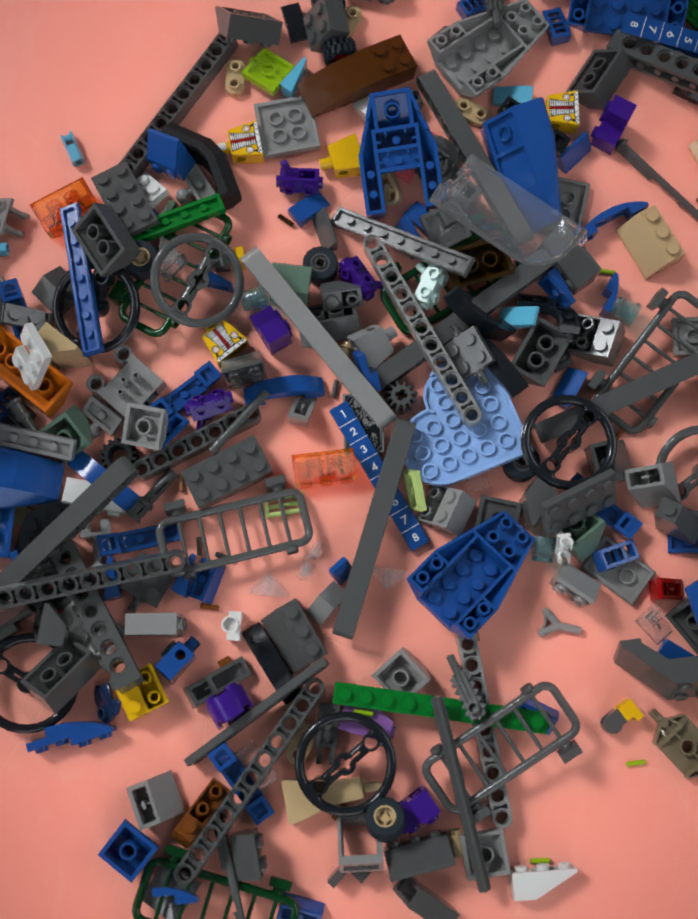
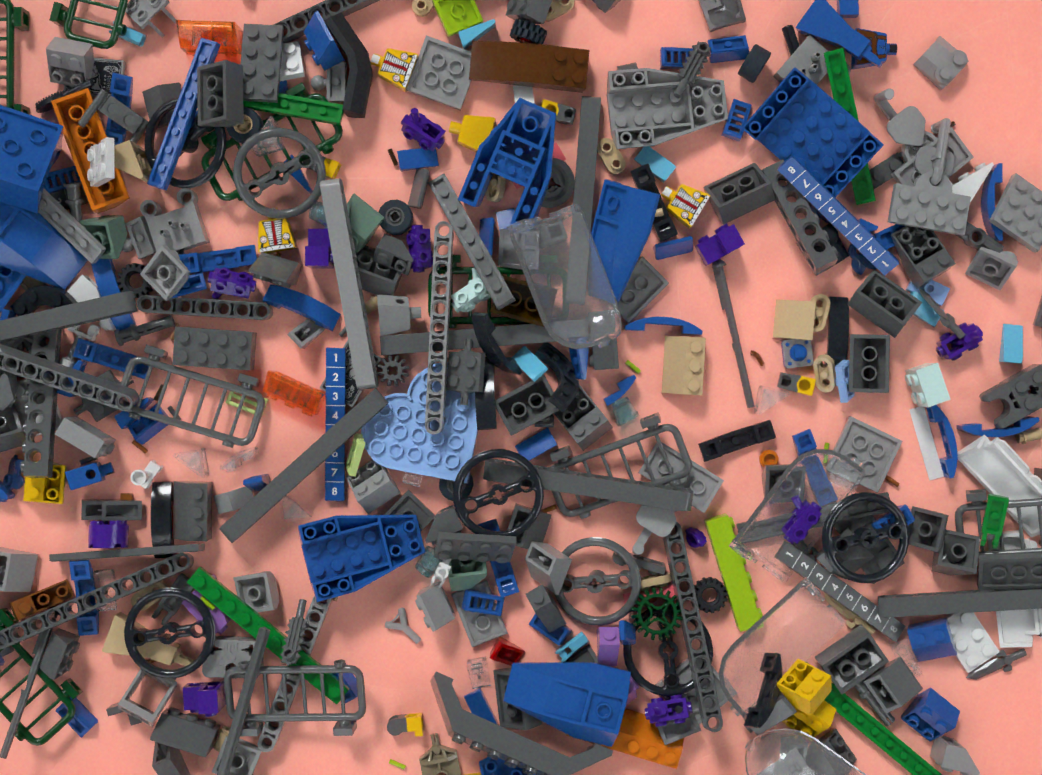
camera: 30 degrees right, 10 degrees up
(239, 421) = (246, 313): dark grey bar -> none
(368, 372) = (374, 336): blue slope -> none
(385, 810) = (171, 686): black wheel -> none
(414, 748) = (230, 650): none -> light grey axle

